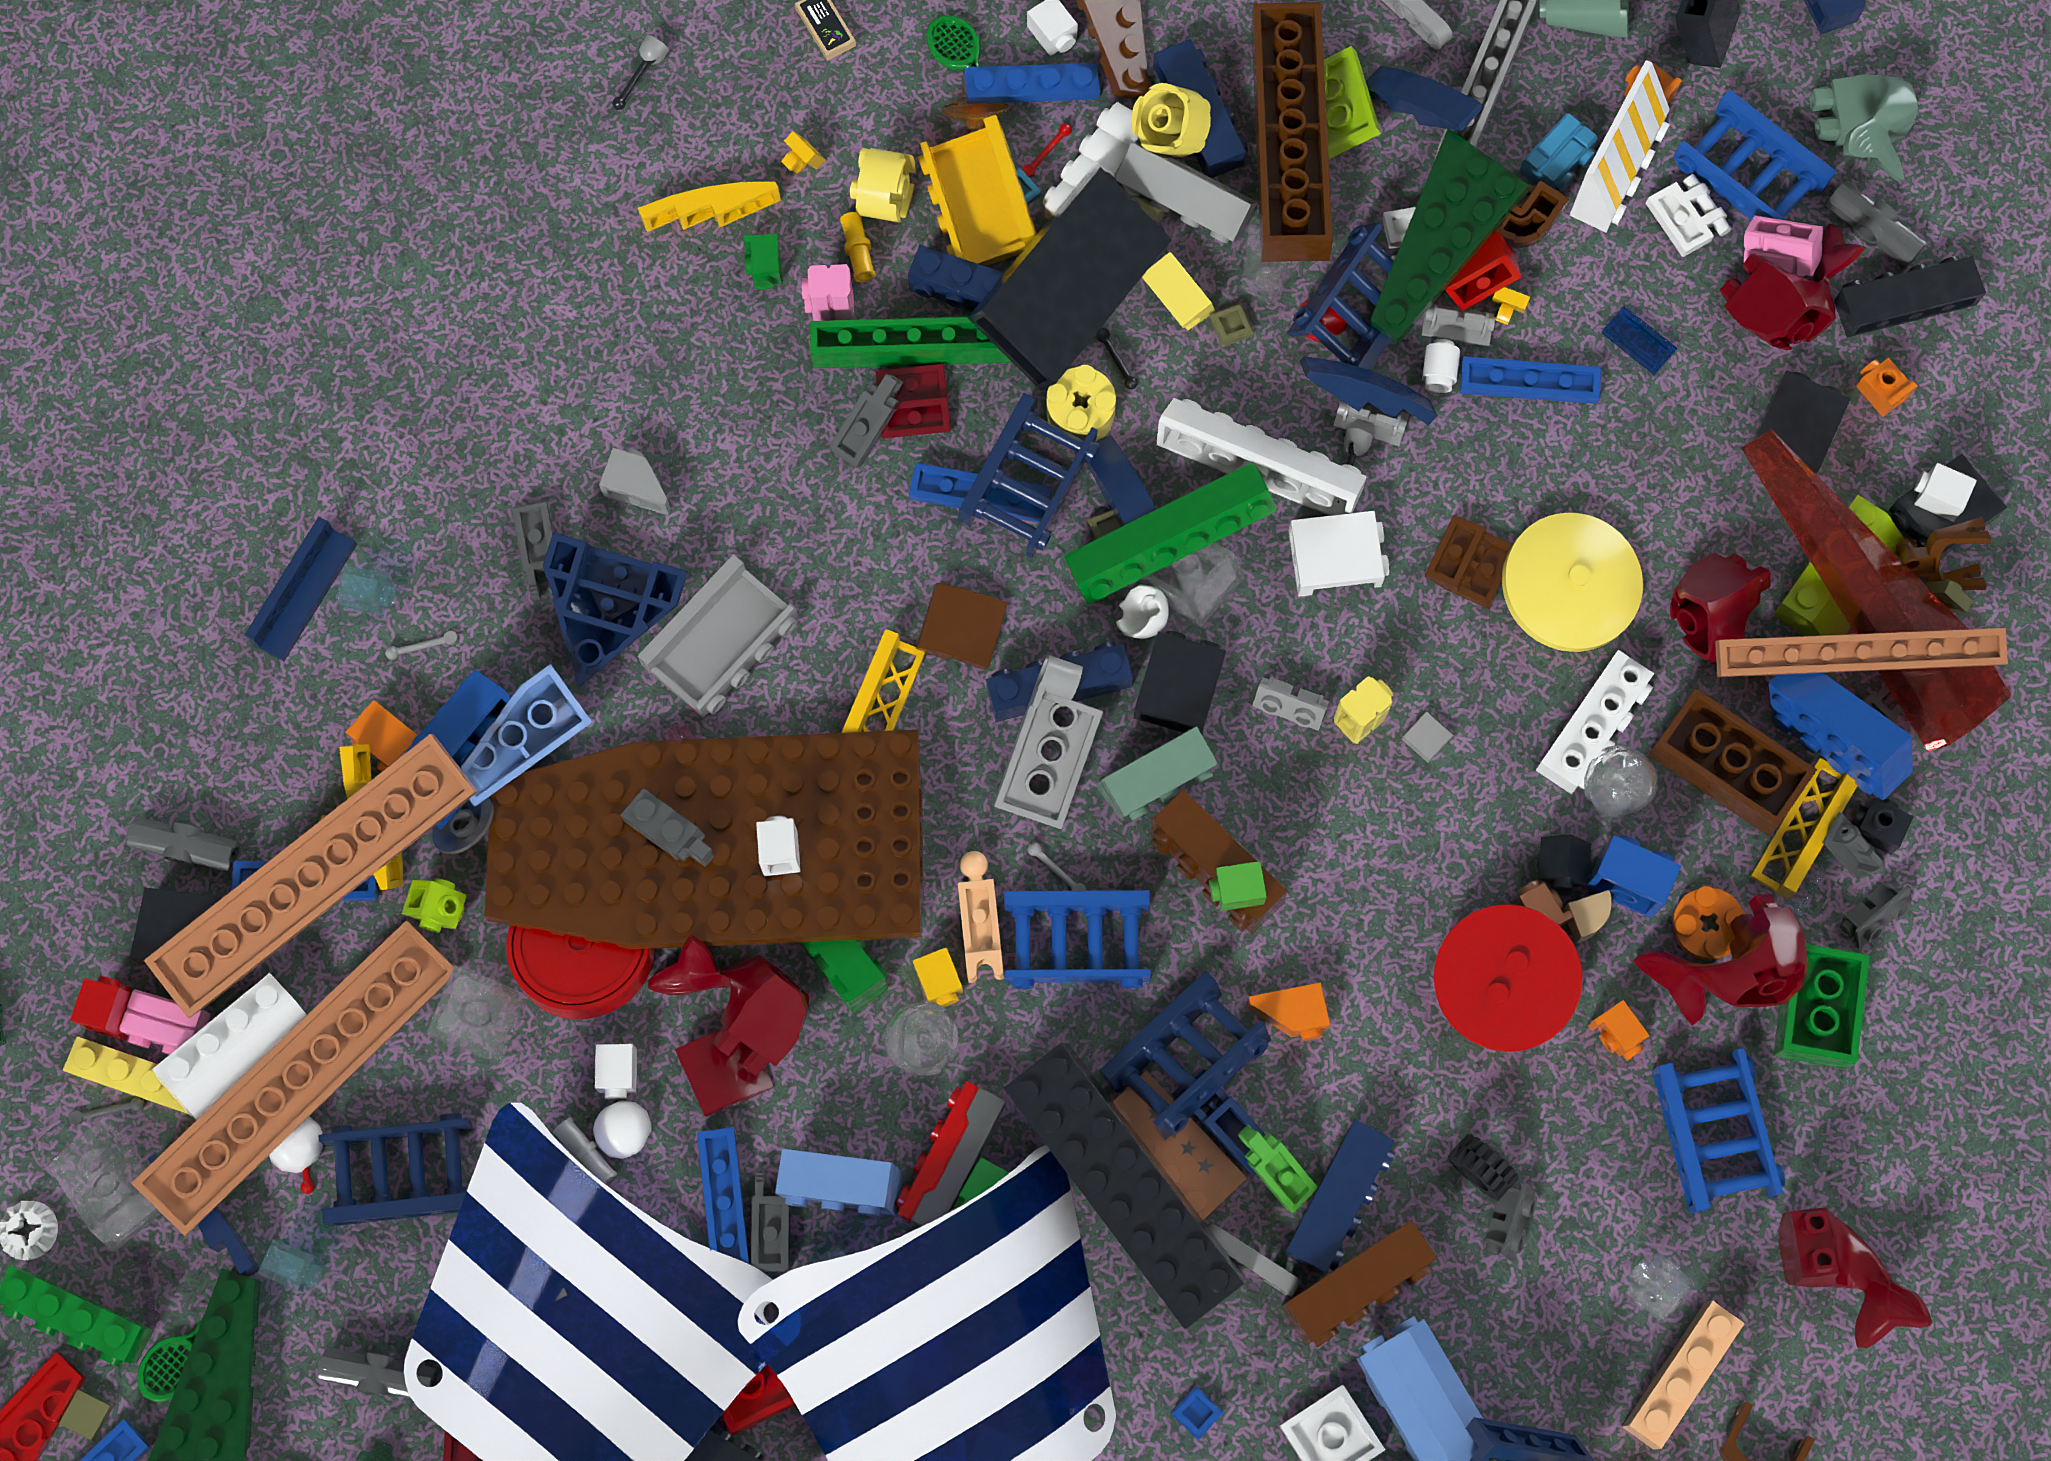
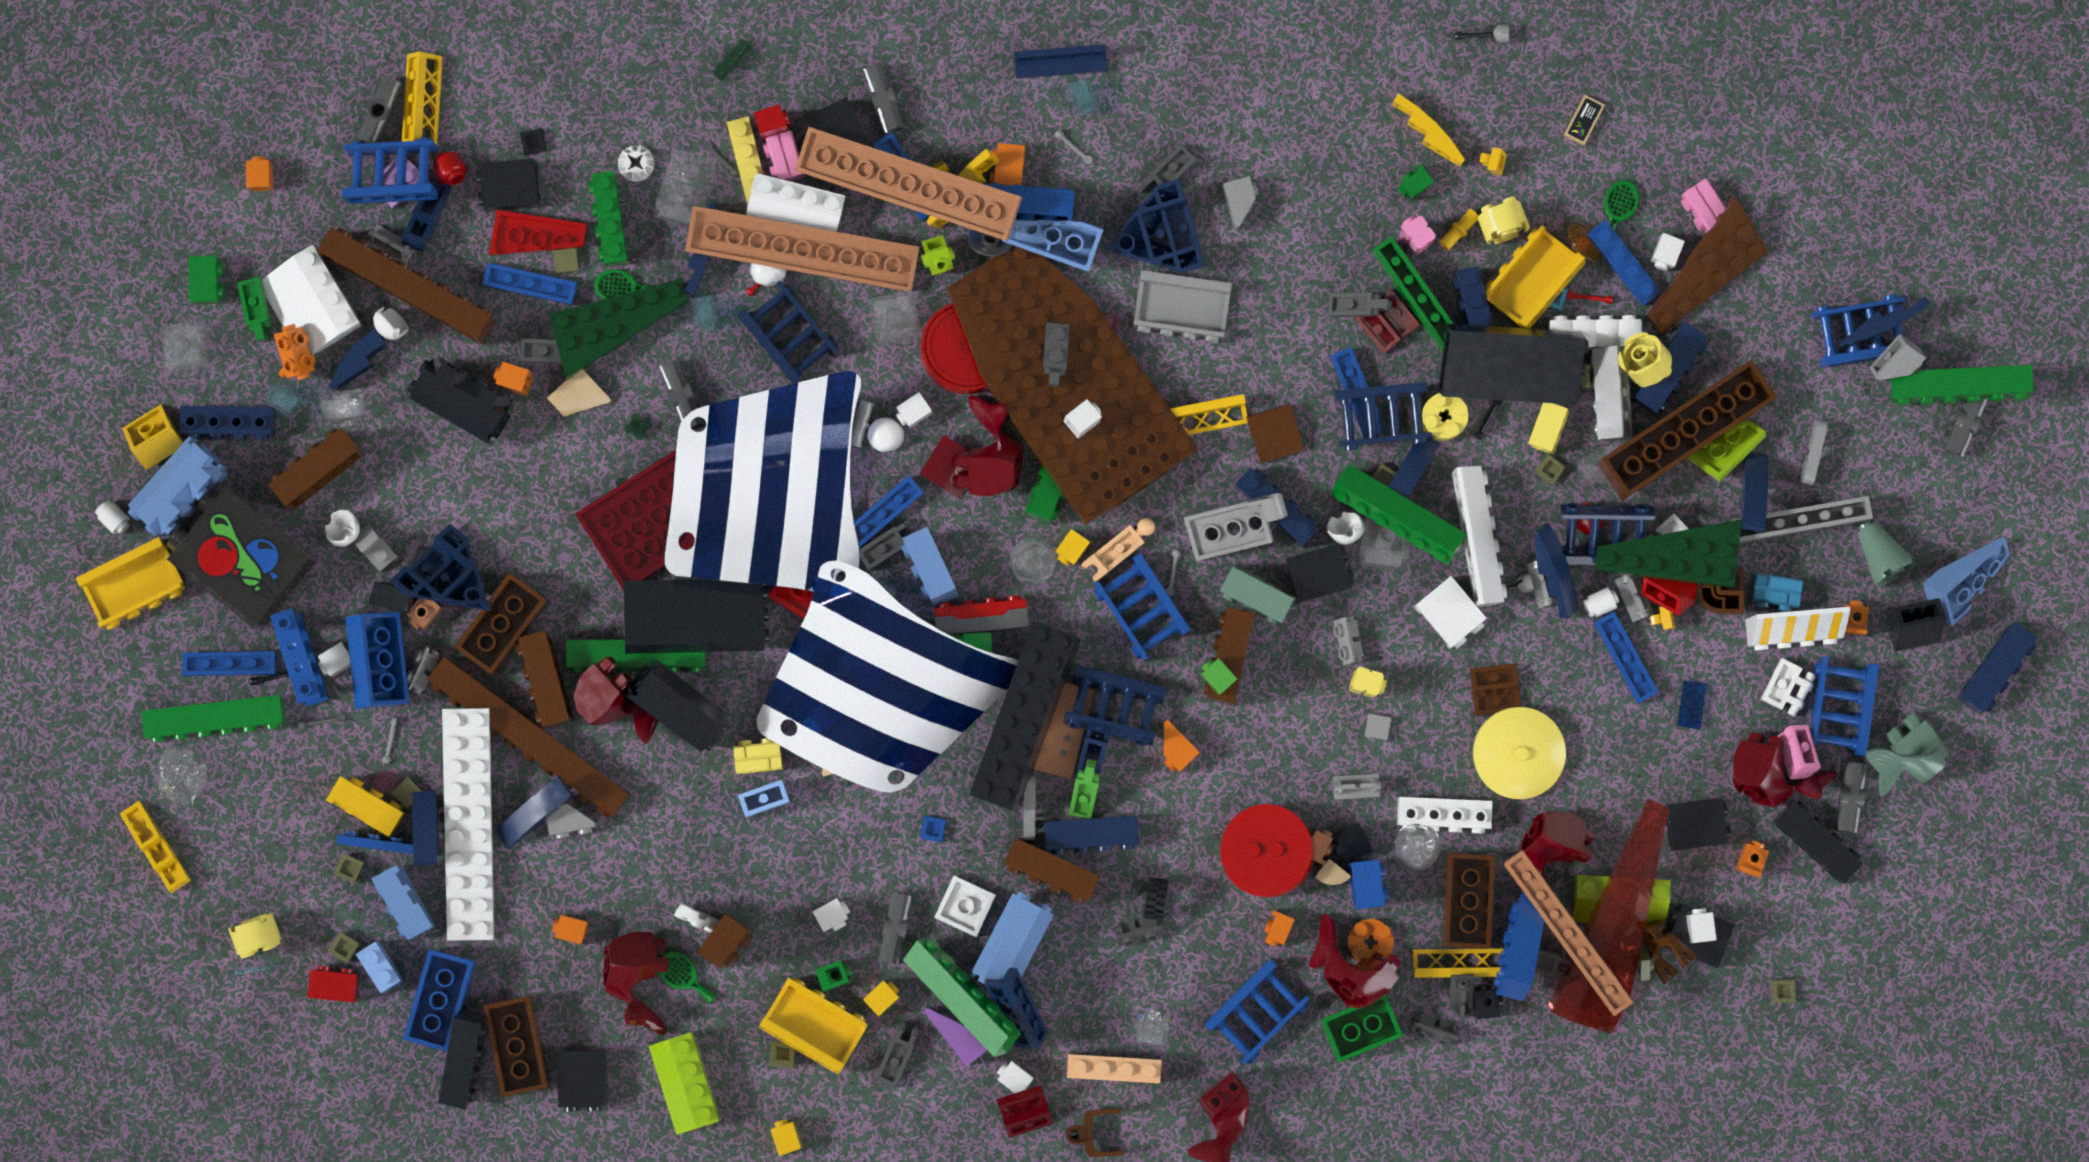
camera: 55 degrees right, 10 degrees up
(1489, 811) = (1356, 786): none -> light grey hinge

